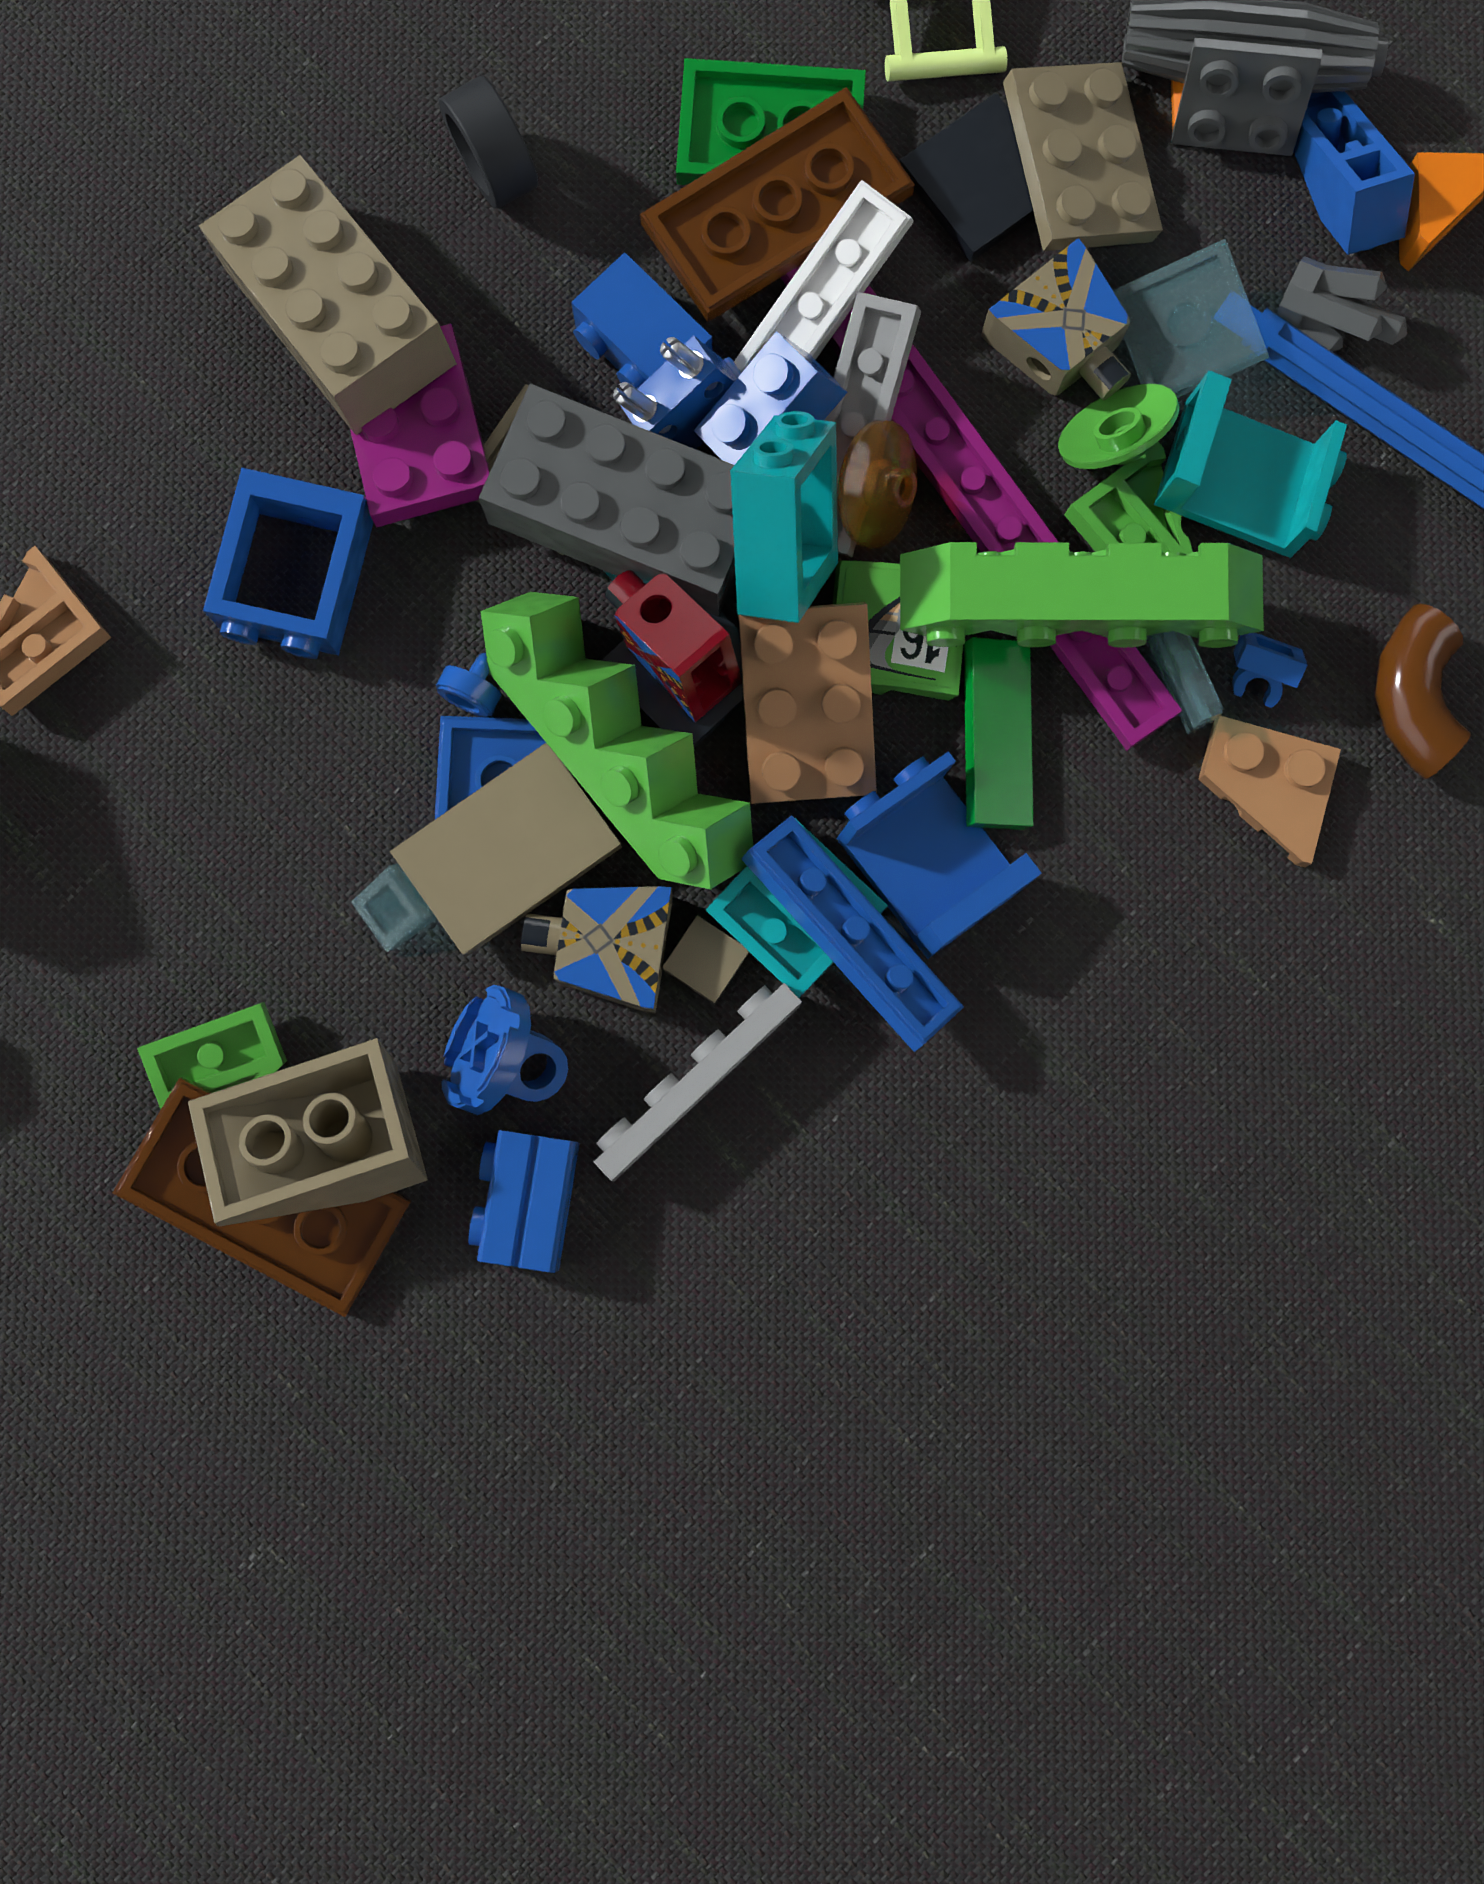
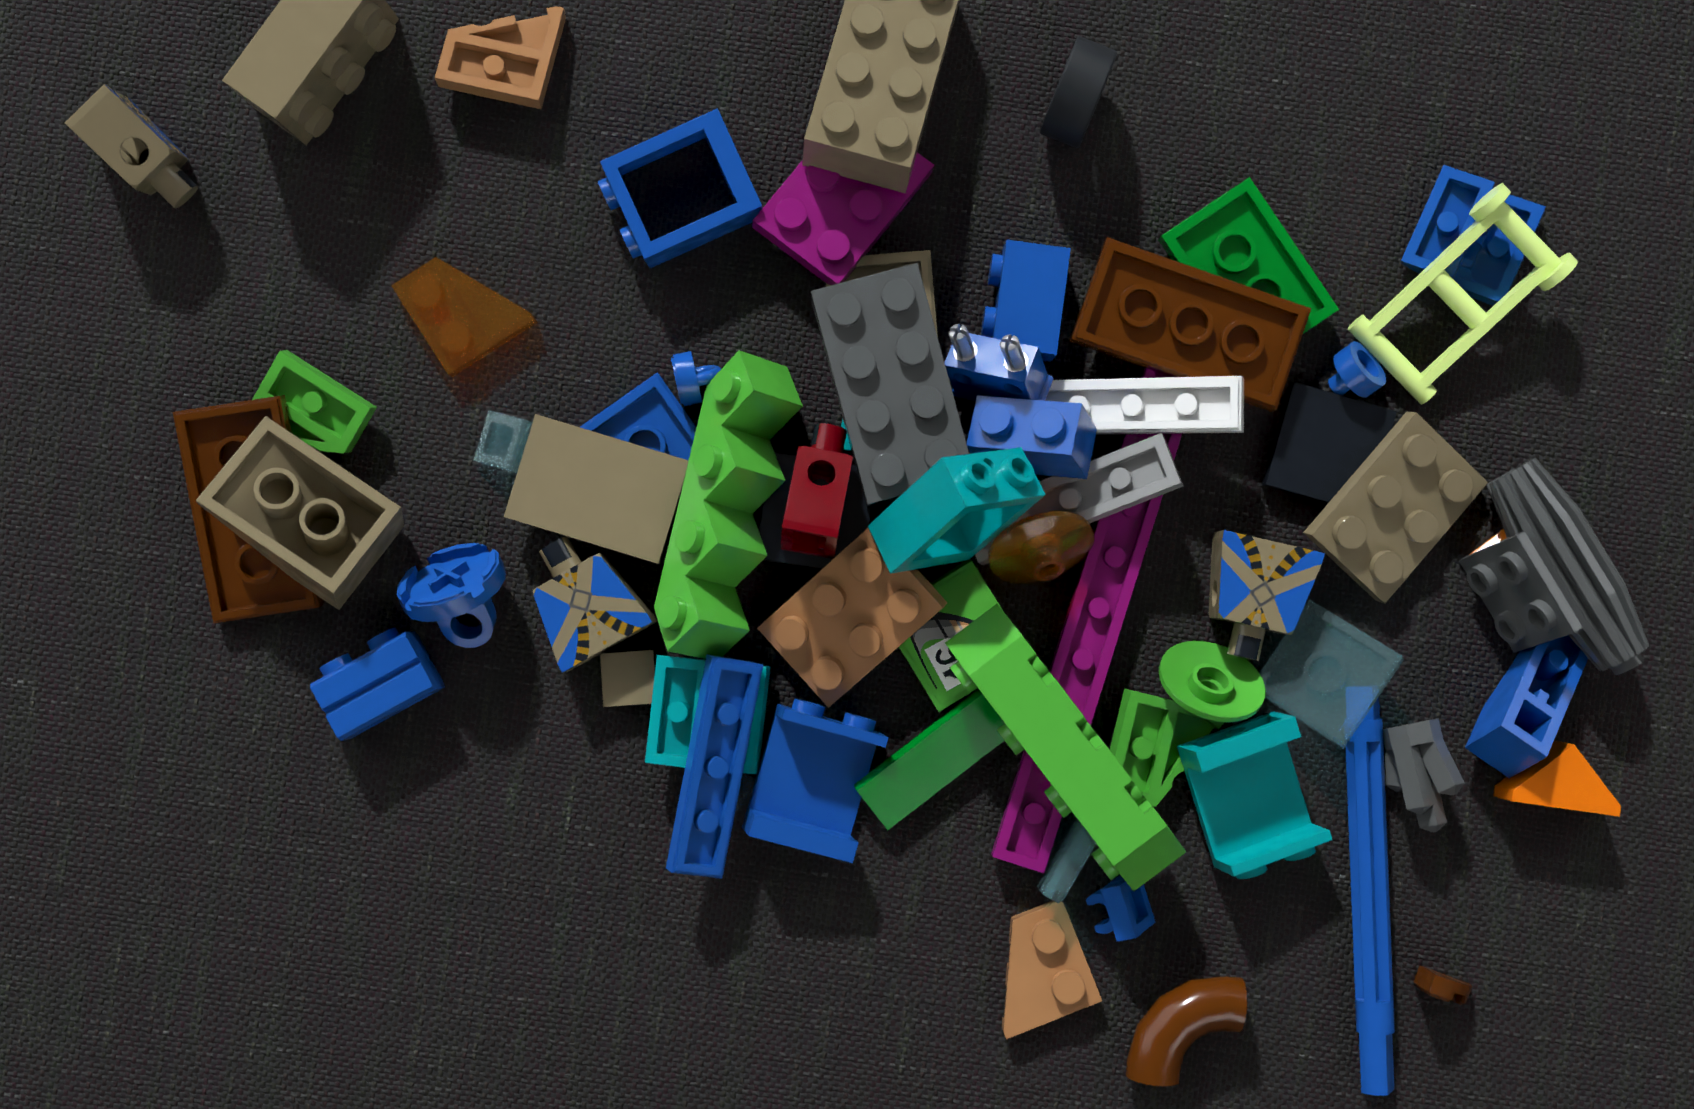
camera: 55 degrees right, 5 degrees up
(239, 858) = (459, 314): none -> clear orange wing
(675, 1098) = (517, 730): light grey plate -> none
(933, 98) = (1356, 371): none -> blue tile

